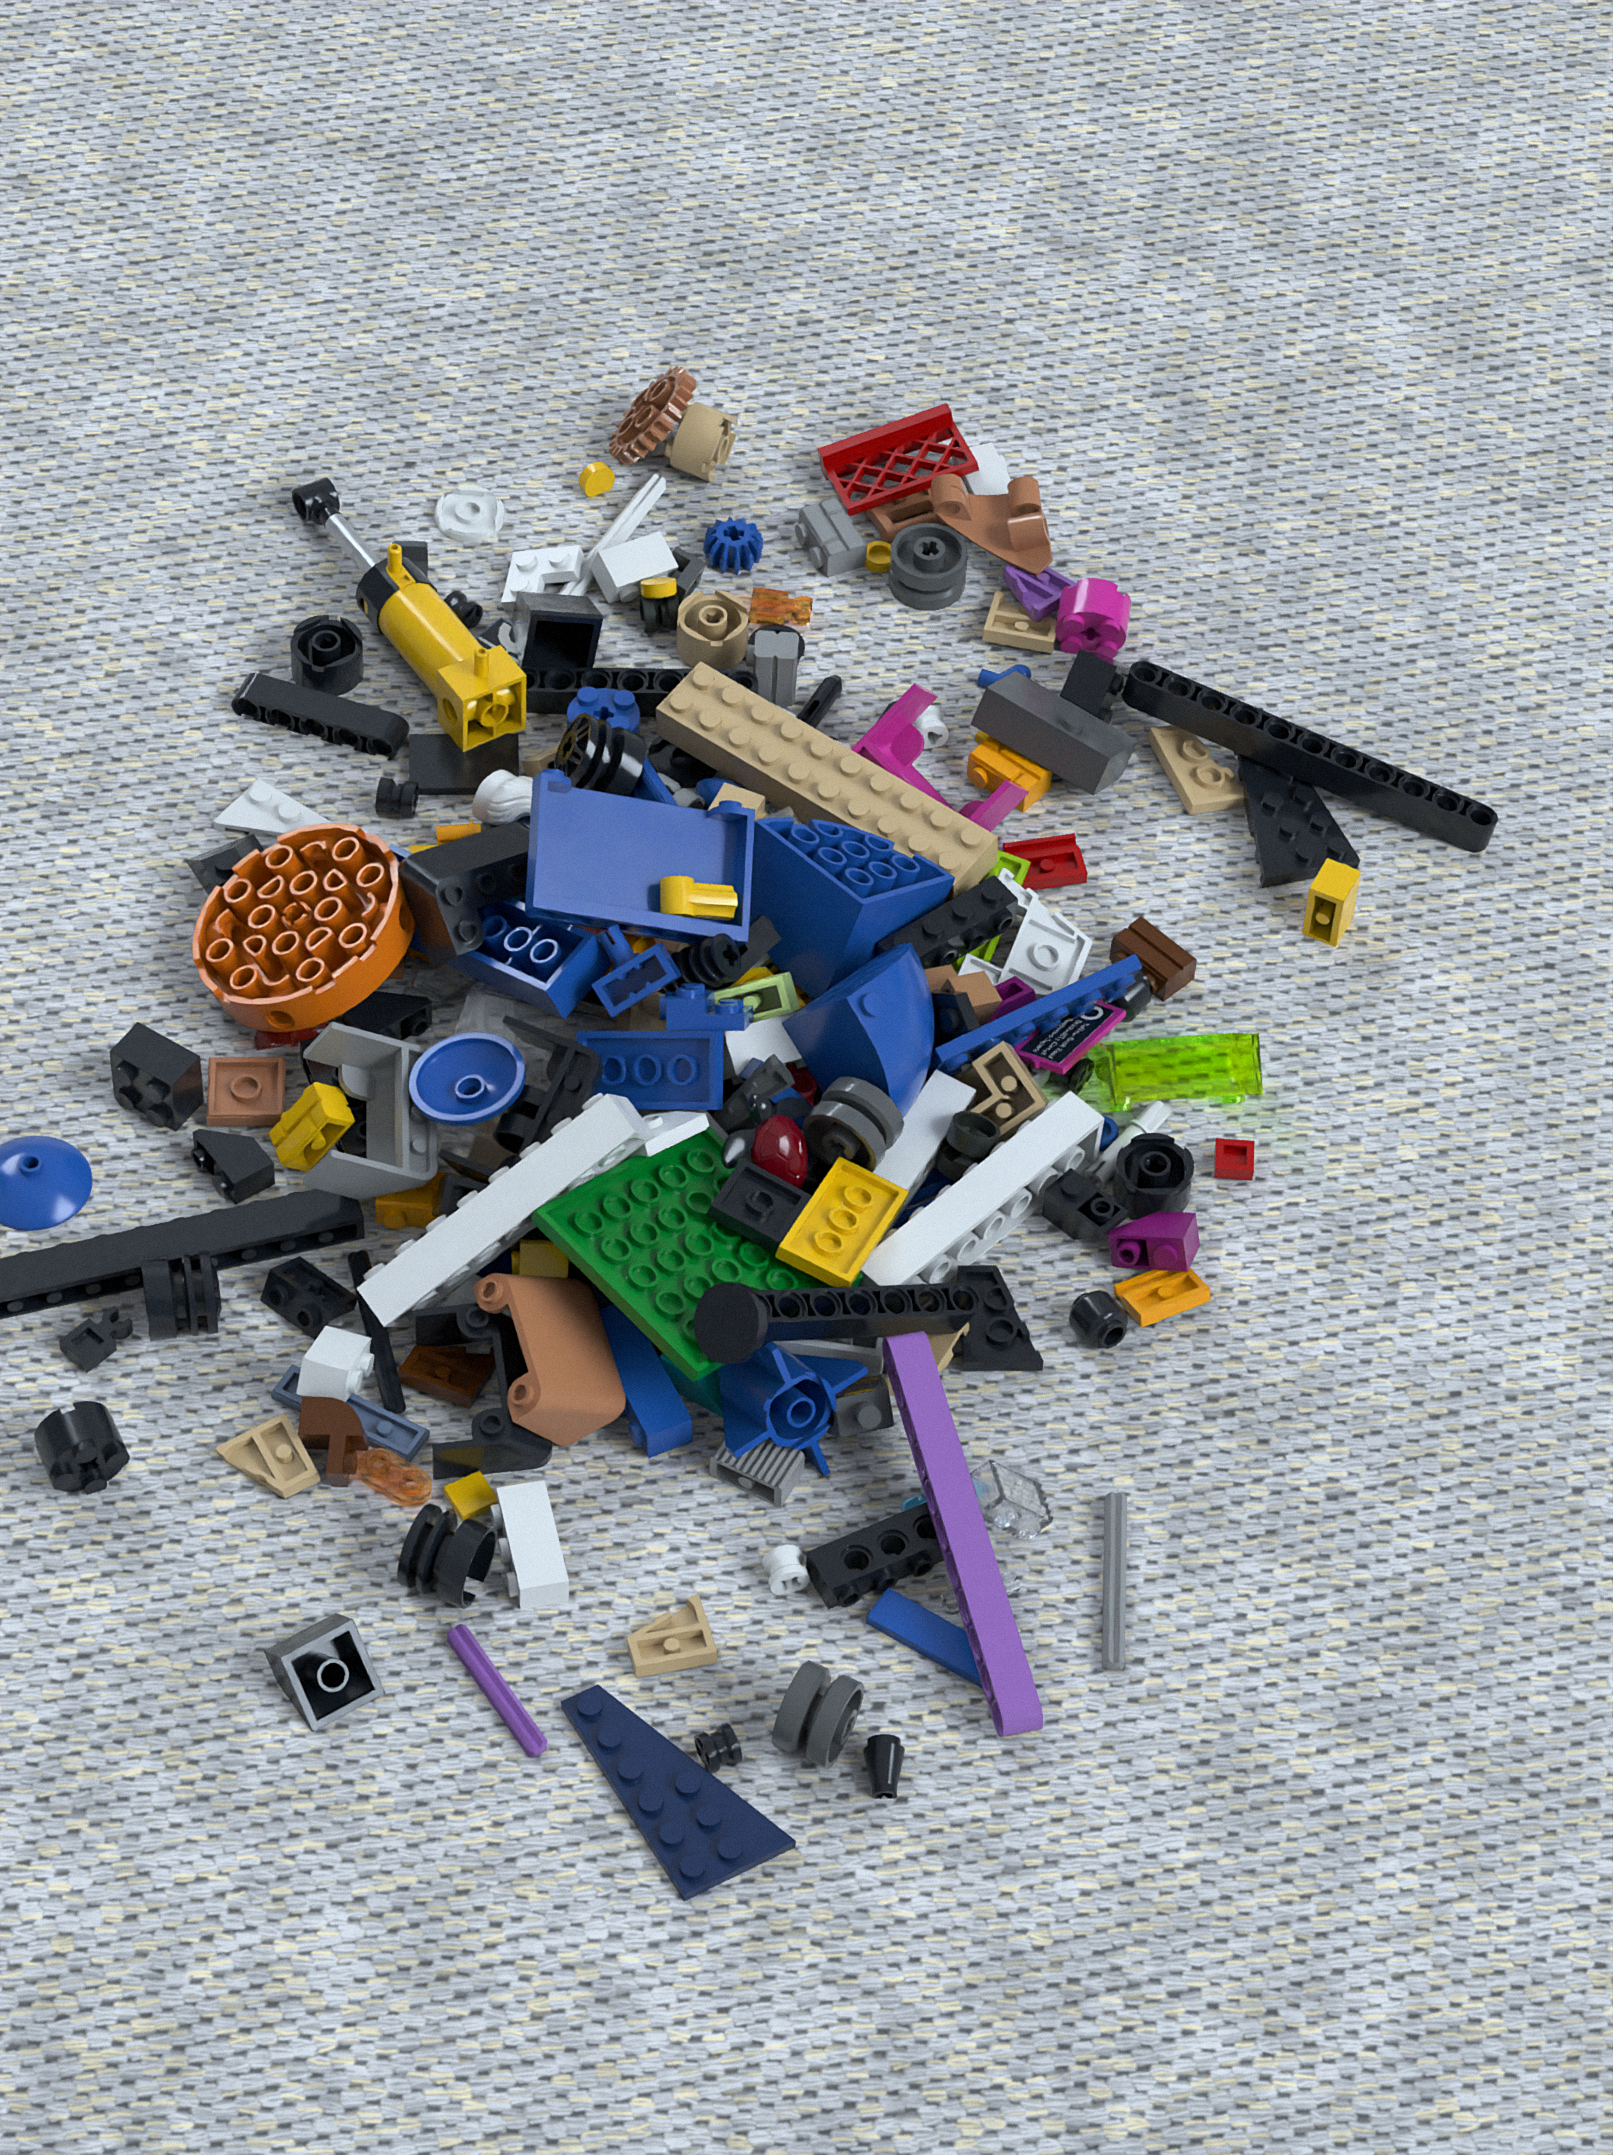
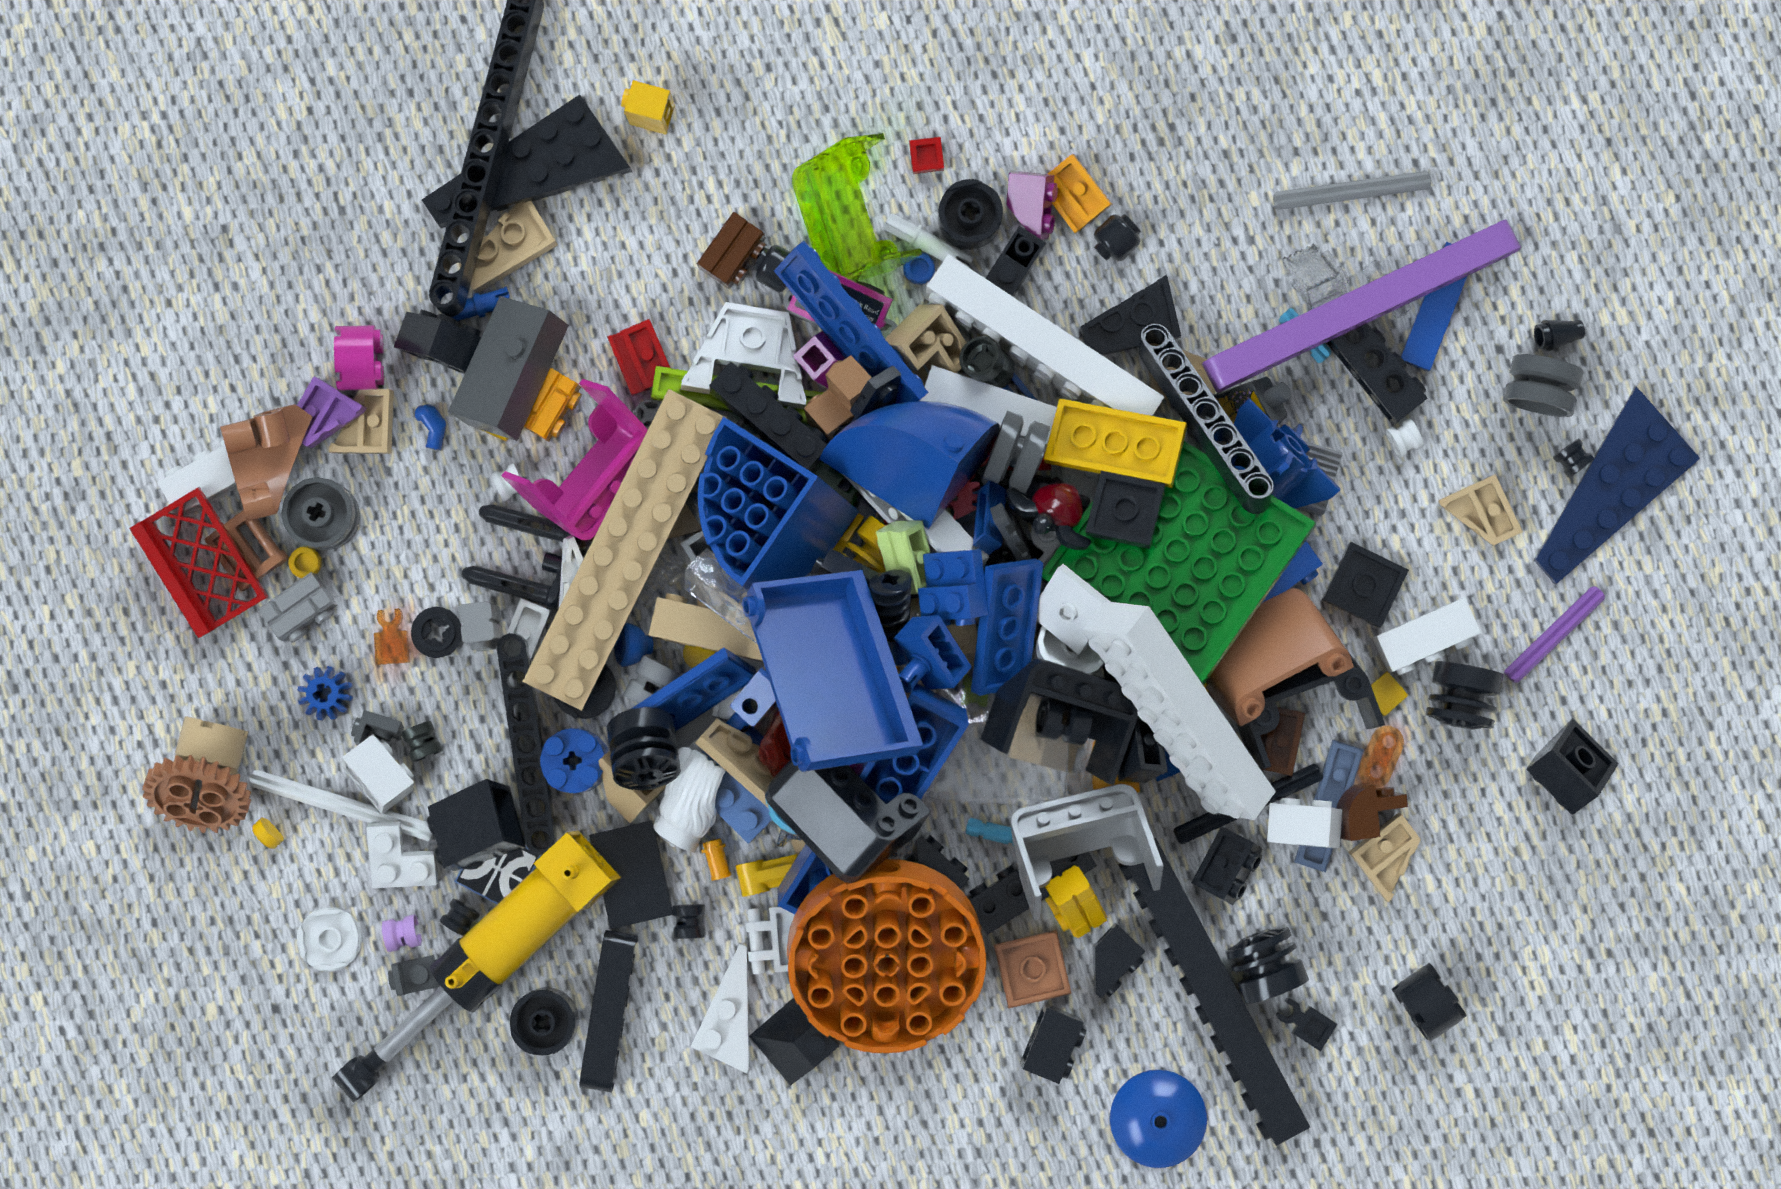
camera: 95 degrees left, 35 degrees up
(458, 563) = (400, 933): none -> lavender wheel
(467, 1079) = (1055, 796): blue dish -> none
(611, 1497) = (1365, 584): none -> black plate
(658, 587) = (405, 745): yellow tile -> none
(696, 900) = (845, 627): yellow piece -> none
(712, 629) = (423, 695): tan brick -> none
(730, 1323) = (1280, 501): black tile -> none
(1132, 726) = (481, 304): none -> blue pin

